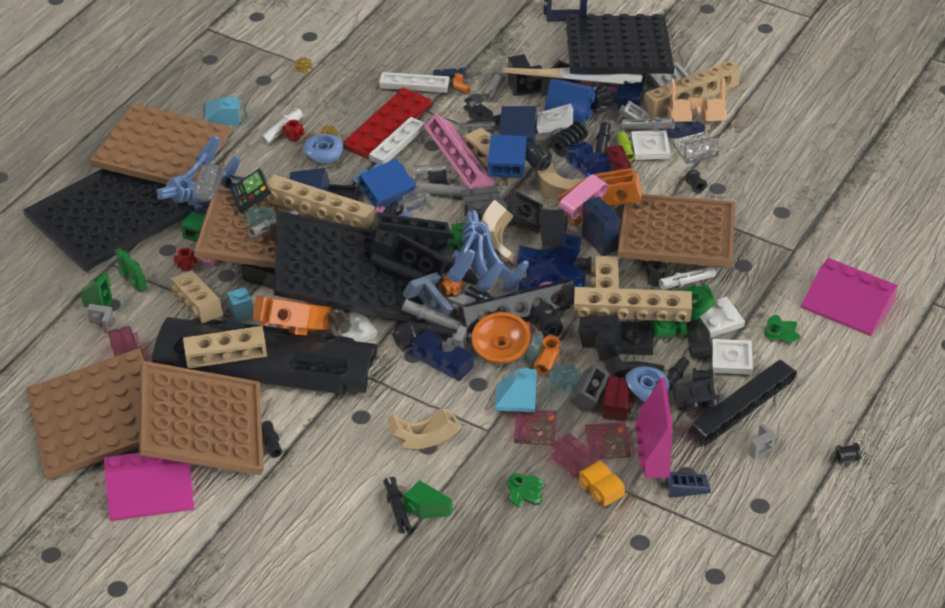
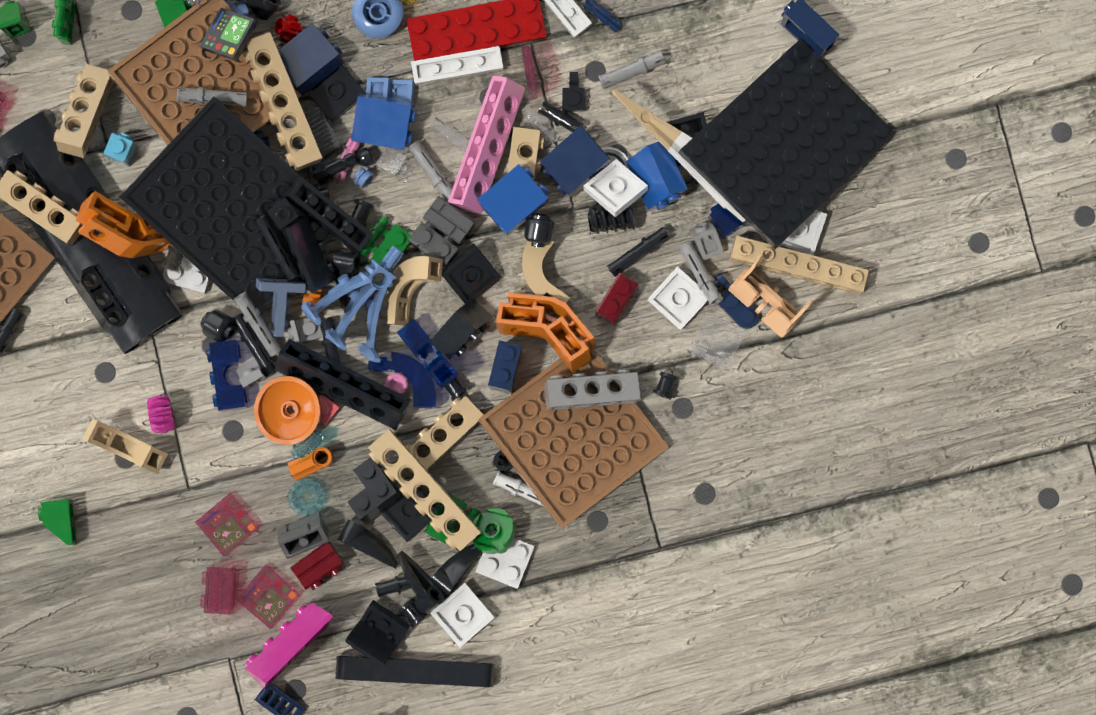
camera: 45 degrees right, 40 degrees up
(185, 259) = (122, 40): red gear -> none
(253, 214) = (213, 83): clear light blue gear -> none
(394, 497) = (41, 491): black pin -> none
(425, 398) = (160, 414): none -> dark pink gear
(438, 177) = (442, 152): black bush -> none
(443, 107) = (529, 72): none -> clear pink tile
(459, 85) = (596, 37): orange arm -> none
(517, 391) = (242, 479): medium azure slope -> none
(523, 84) = (659, 97): black brick -> none
(527, 489) = (150, 585): green plate -> none
(547, 320) = (349, 425): black wheel -> none
(585, 160) = (594, 253): clear blue arch -> none
(588, 189) = (512, 328): bright pink beam -> none
(601, 483) = (210, 638): light orange brick -> none
(602, 98) = (693, 198): black gear -> none
(627, 145) = (654, 277): lime pin -> none
(643, 381) = (354, 577): medium blue hat -> none
(662, 200) = (558, 400): none -> light grey brick
(689, 356) = (426, 590): none -> black piece
(781, 330) = (543, 626): green plate -> none
(850, 296) = (634, 653): dark pink slope -> none

